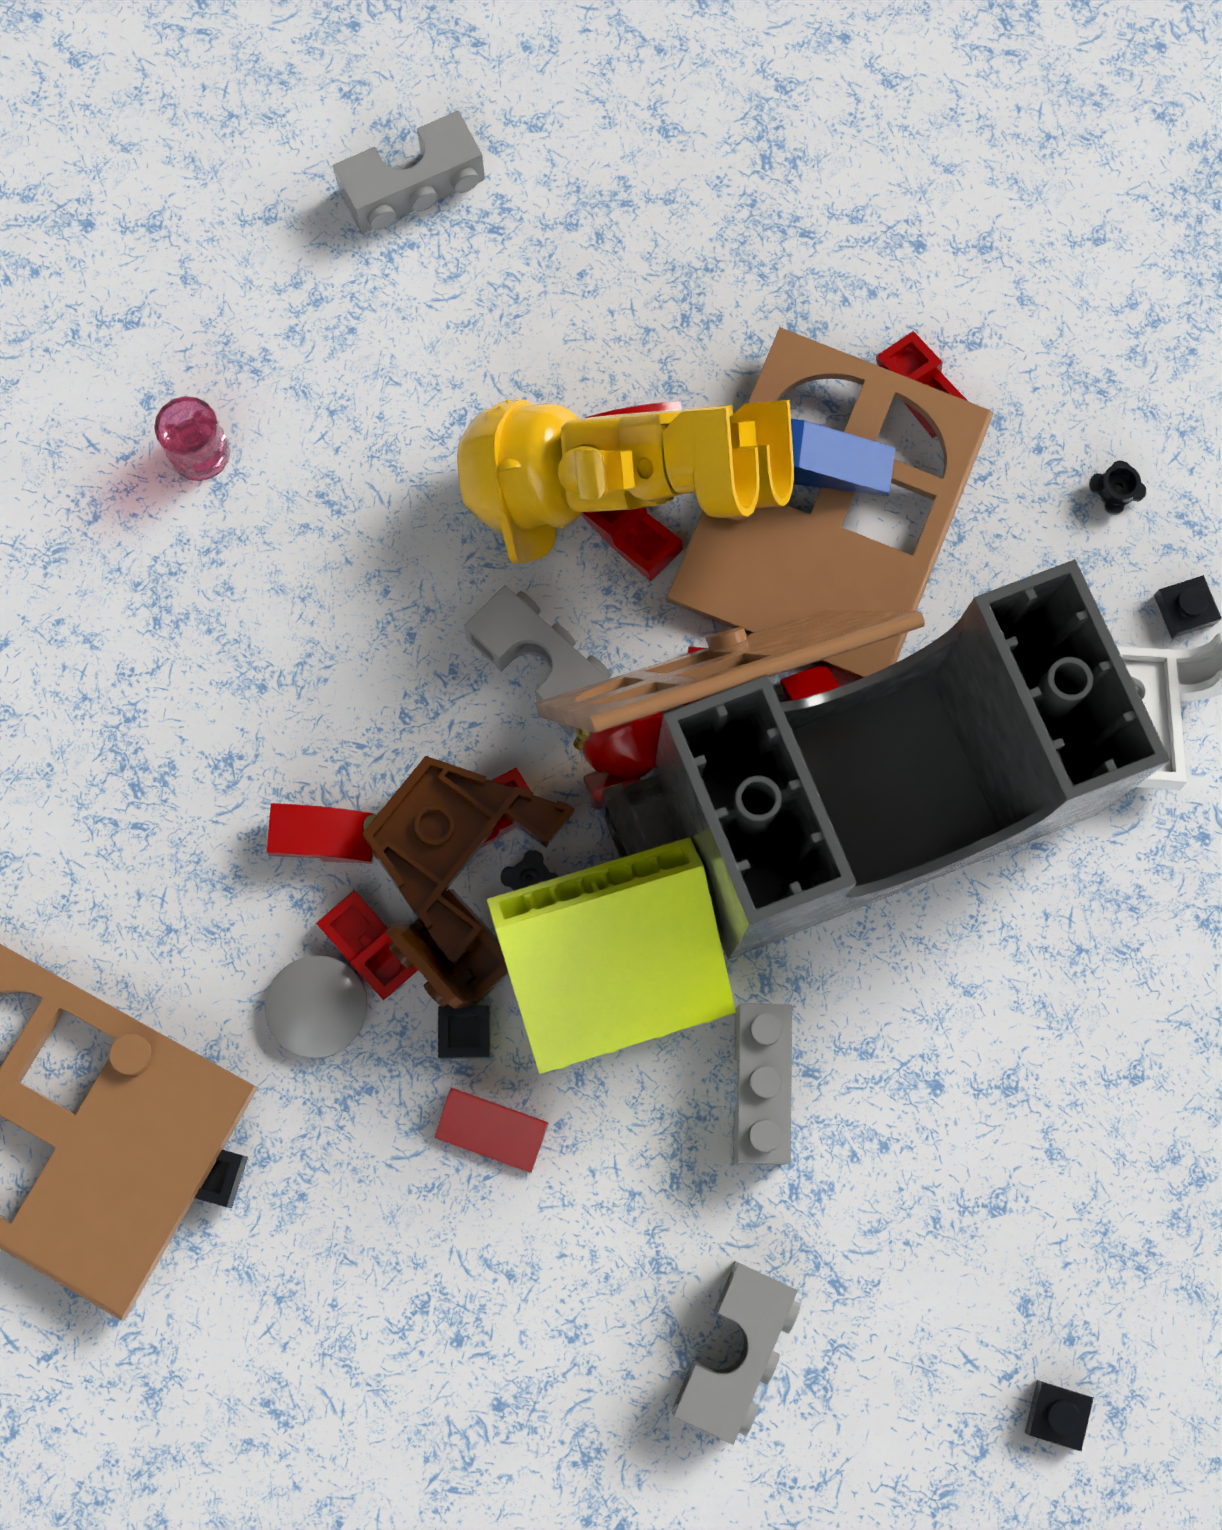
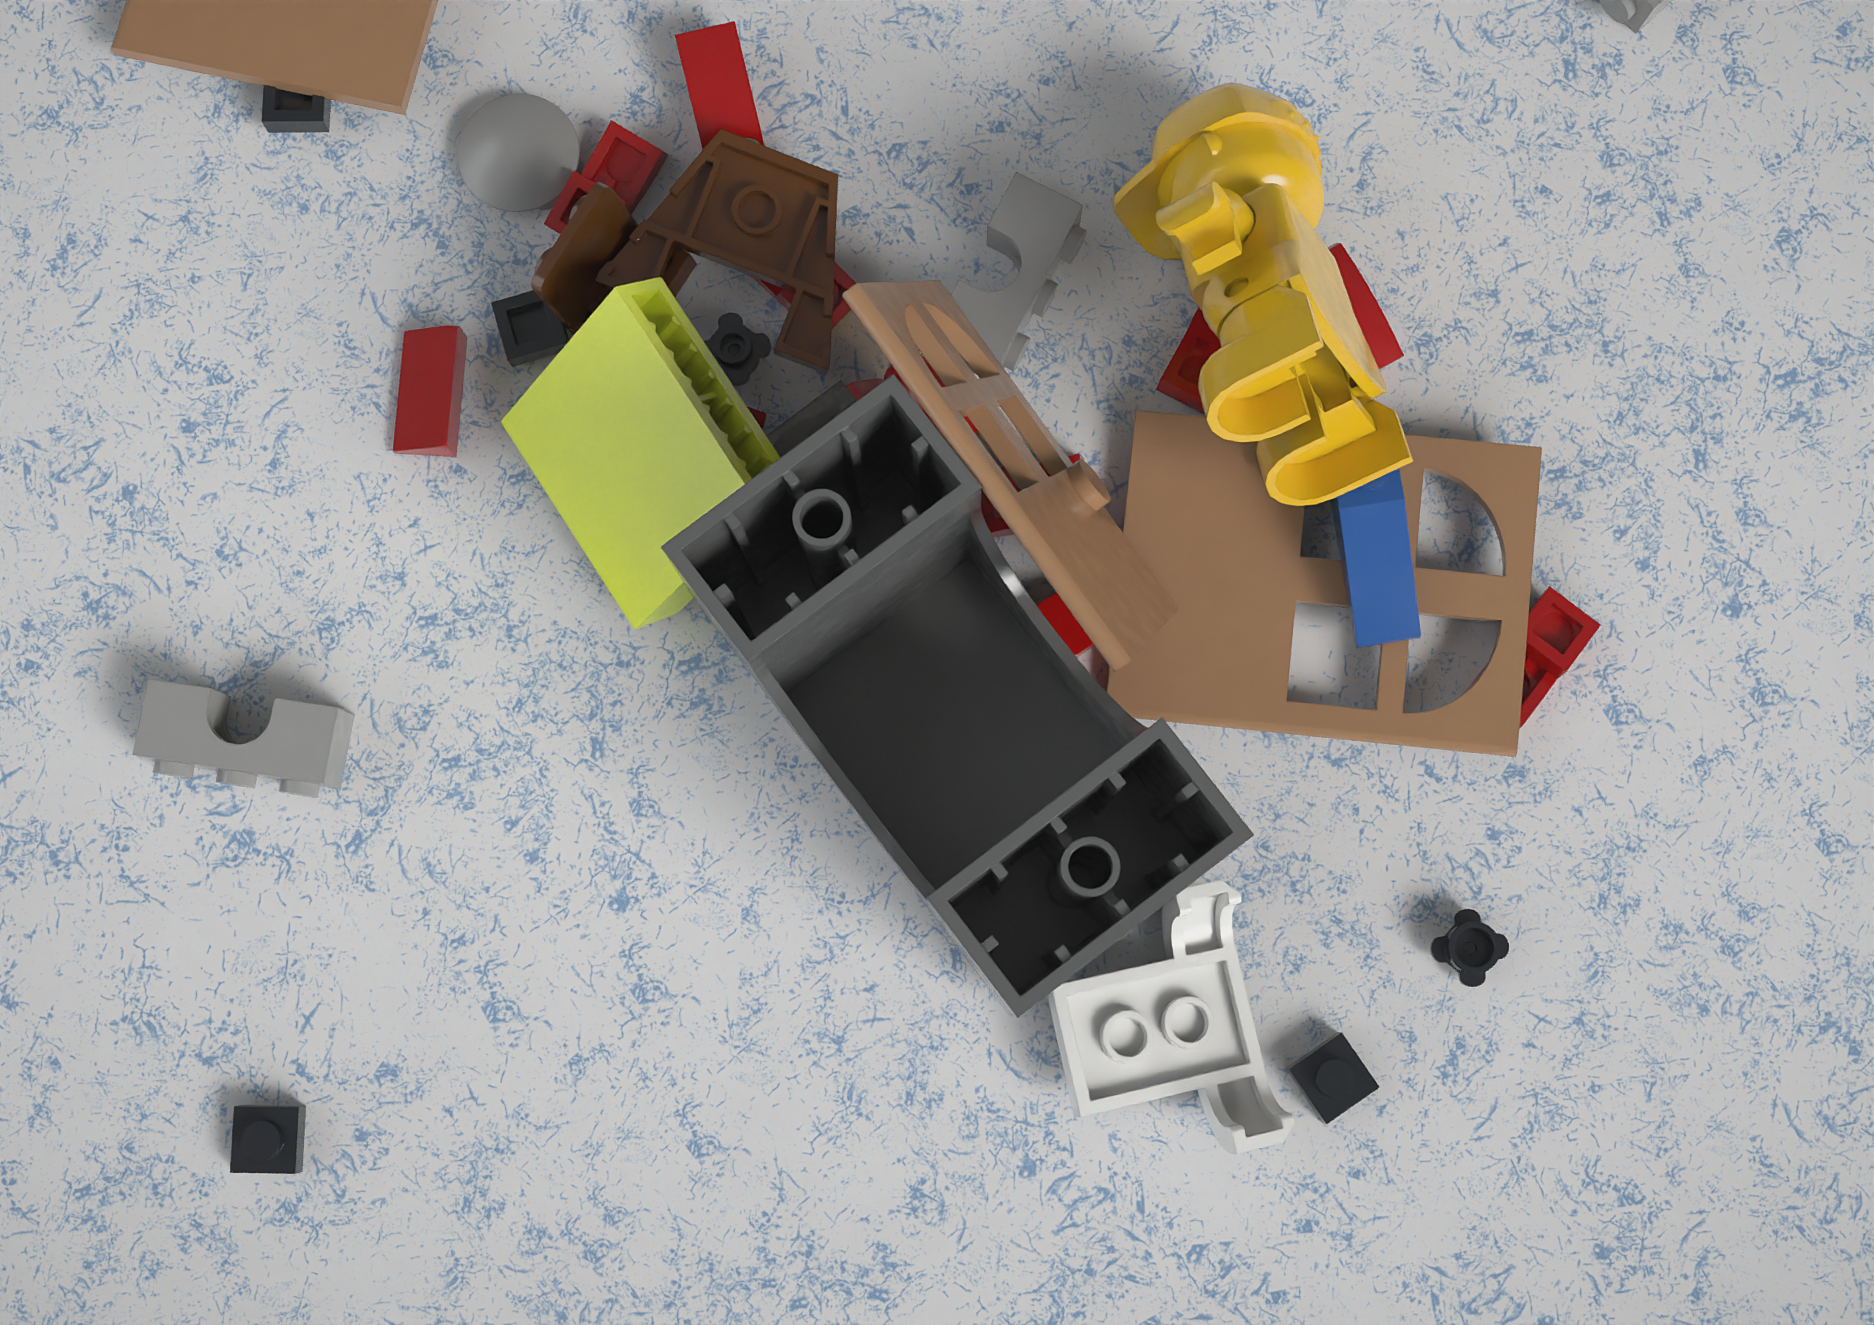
camera: 80 degrees right, 5 degrees up
(763, 1084) = (572, 677): light grey arch -> none

